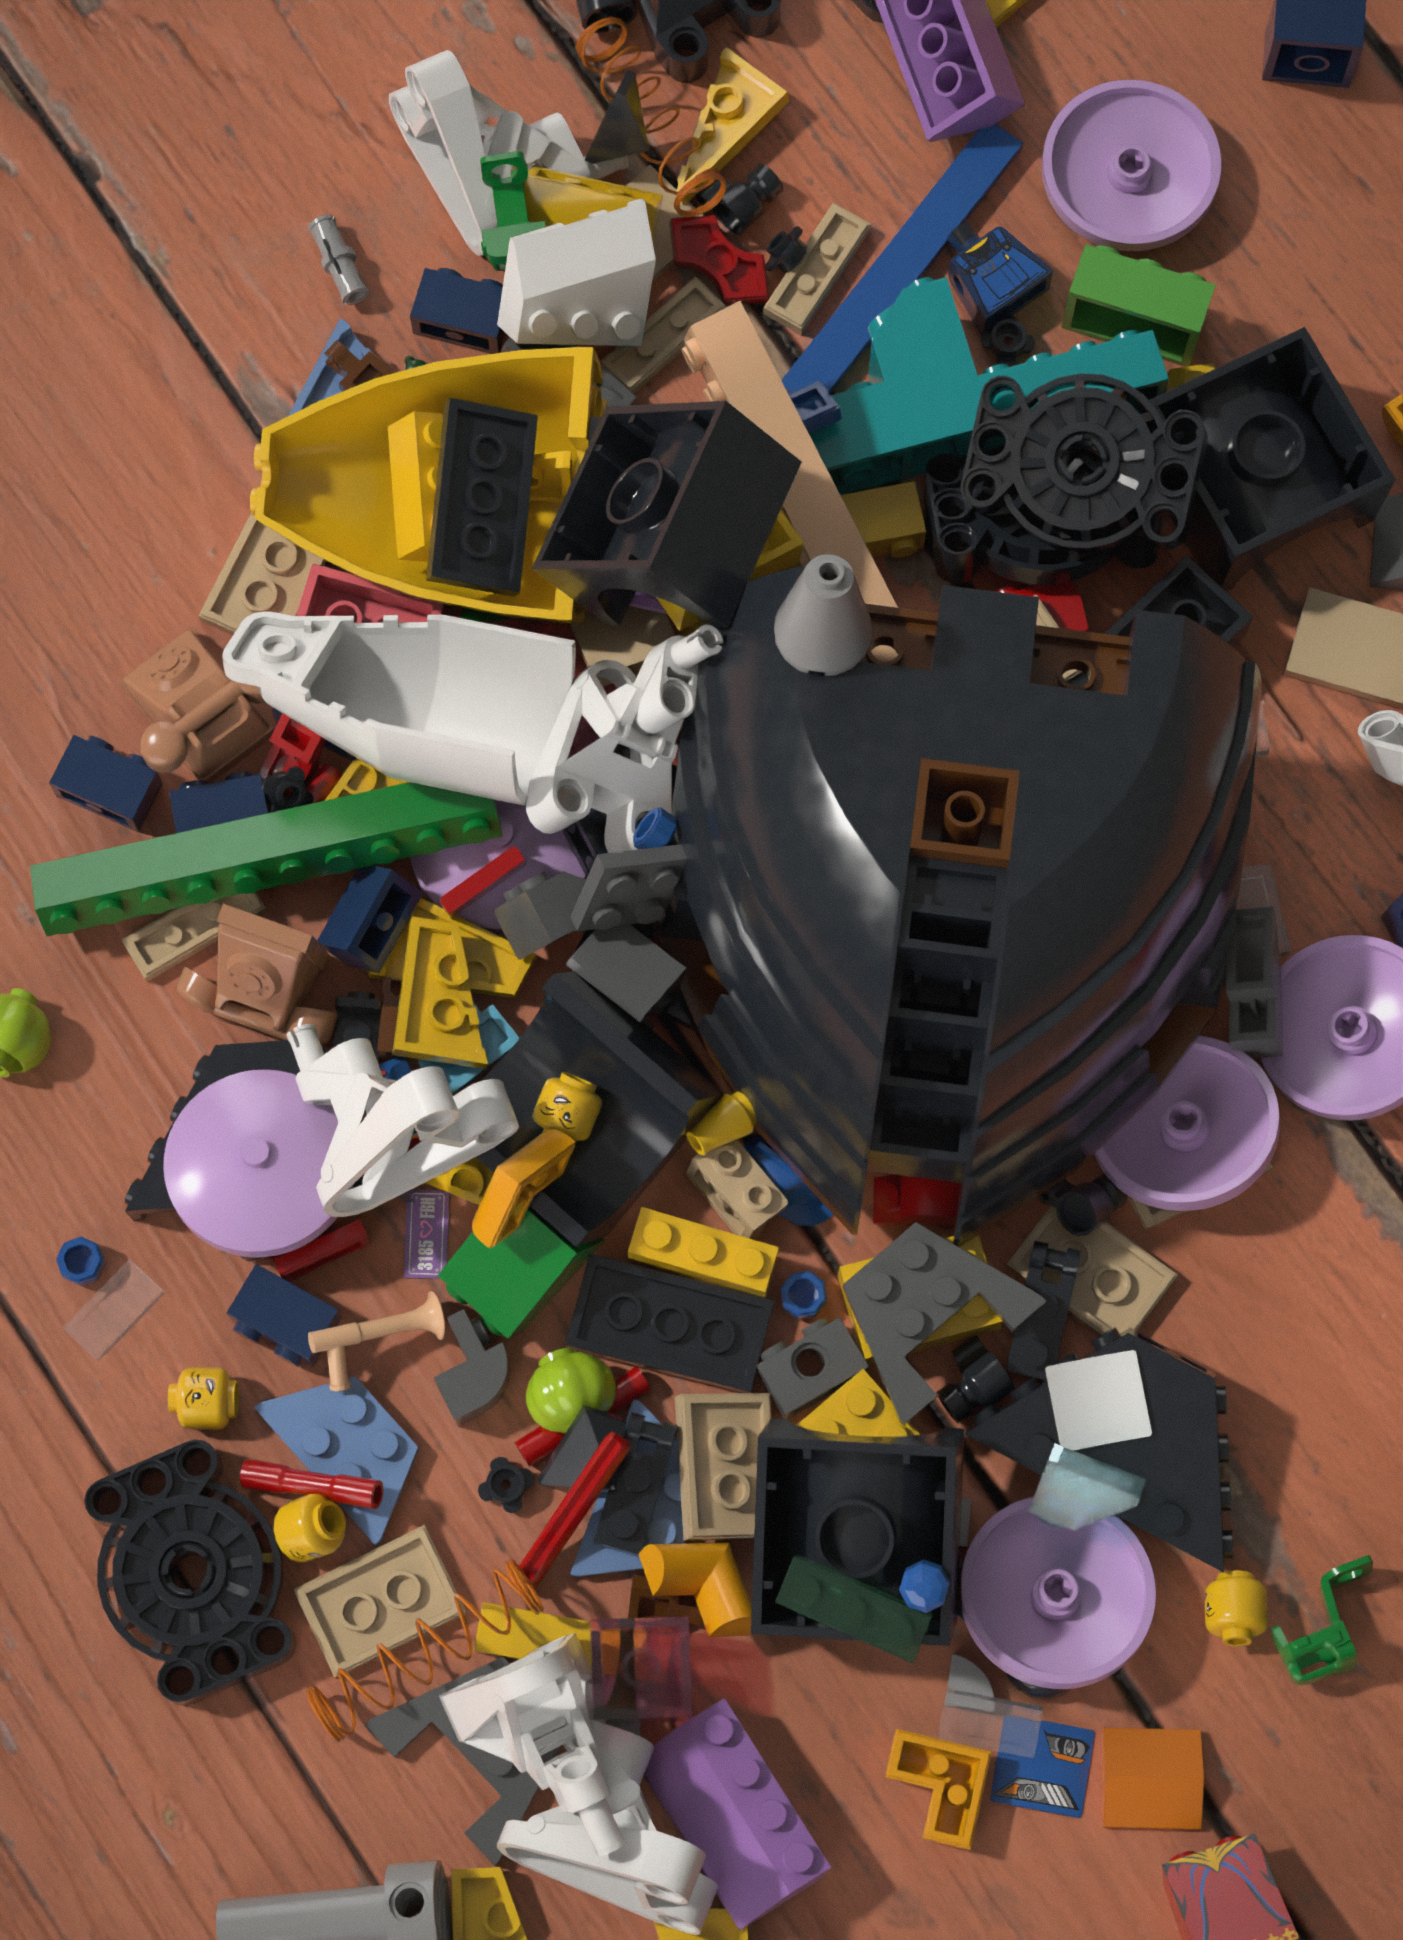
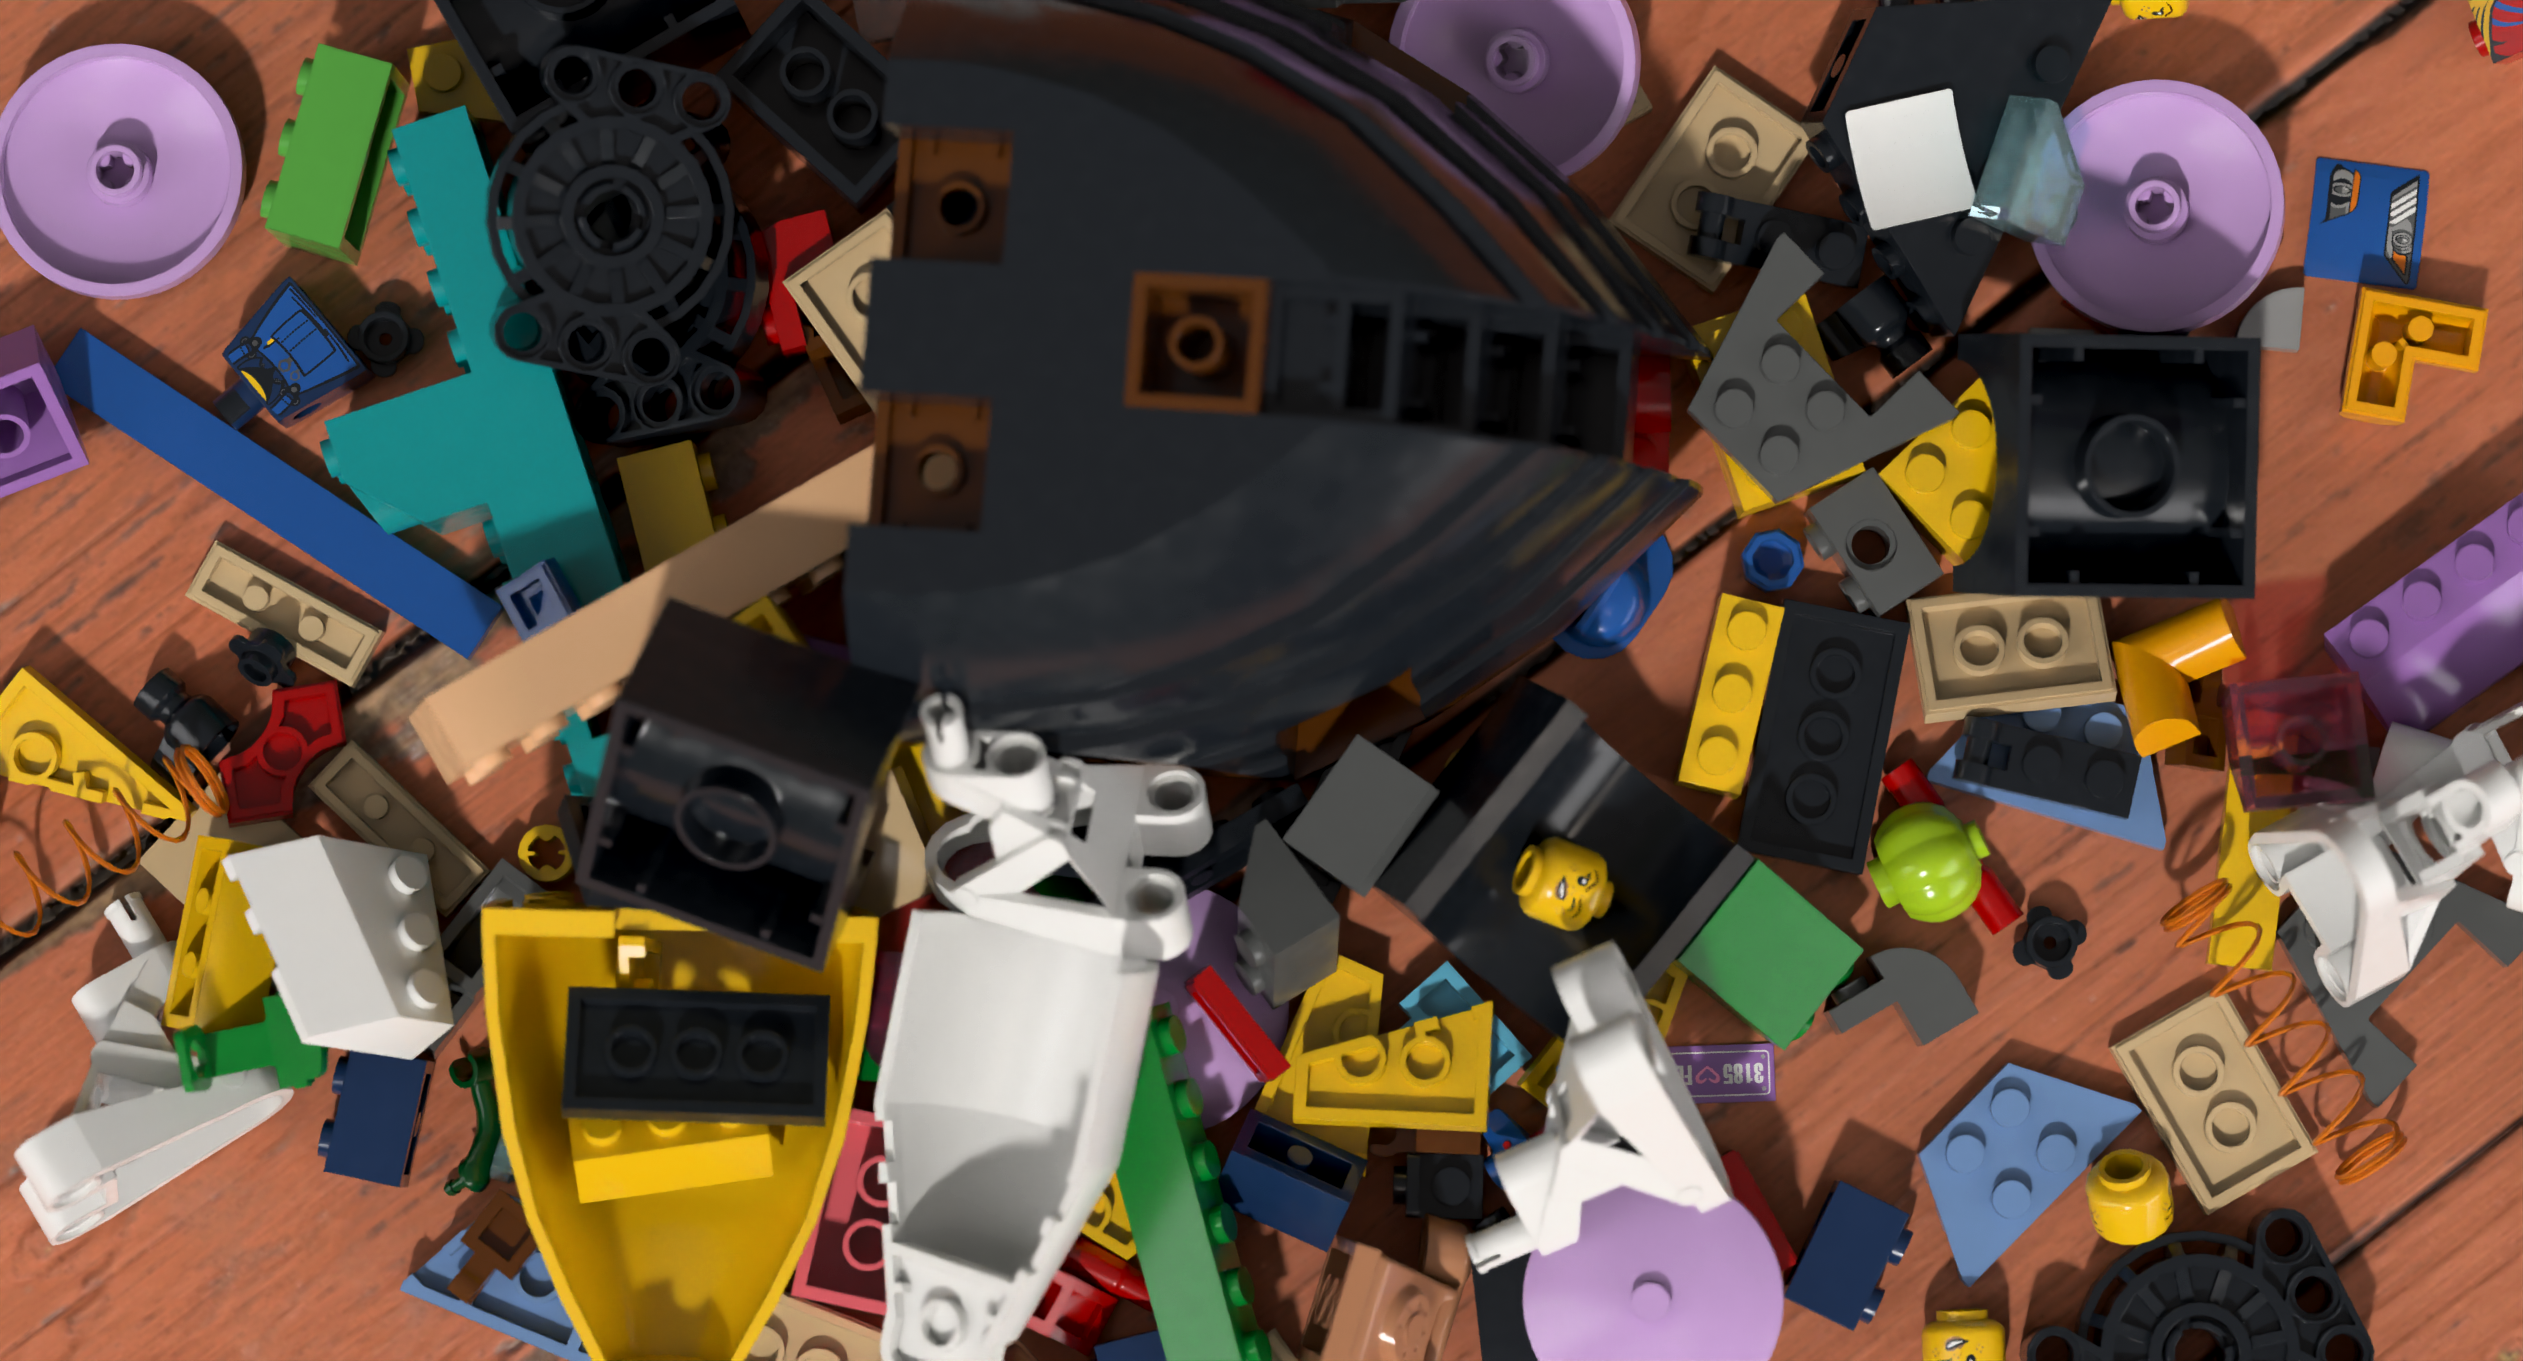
camera: 90 degrees left, 10 degrees up
(275, 786) = (1106, 1318): black plate -> none
(334, 1339) = (1884, 1182): light nougat piece -> none
(338, 259) = (304, 1300): light grey pin -> none
(339, 1488) = (2065, 1238): red piece -> none
(517, 1182) = (1679, 937): light orange brick -> none
(574, 1507) = (2088, 845): red axle -> none
(579, 1446) = (2013, 831): black slope -> none
(622, 127) = (99, 902): black slope -> none
(628, 887) = (1266, 812): dark grey plate -> none
(655, 829) = (1187, 781): blue tile -> none
(725, 1122) = (1560, 667): yellow cone -> none
(736, 1188) = (1636, 654): tan bracket -> none
(824, 619) = (940, 549): light grey cone -> none
(854, 1608) = (2222, 462): clear green plate -> none
(924, 1586) = (2194, 370): blue tile -> none
(990, 1723) = (2322, 291): clear tile -> none
(1084, 1206) = (1636, 188): black piece -> none
(1152, 1778) = (2373, 81): orange slope -> none

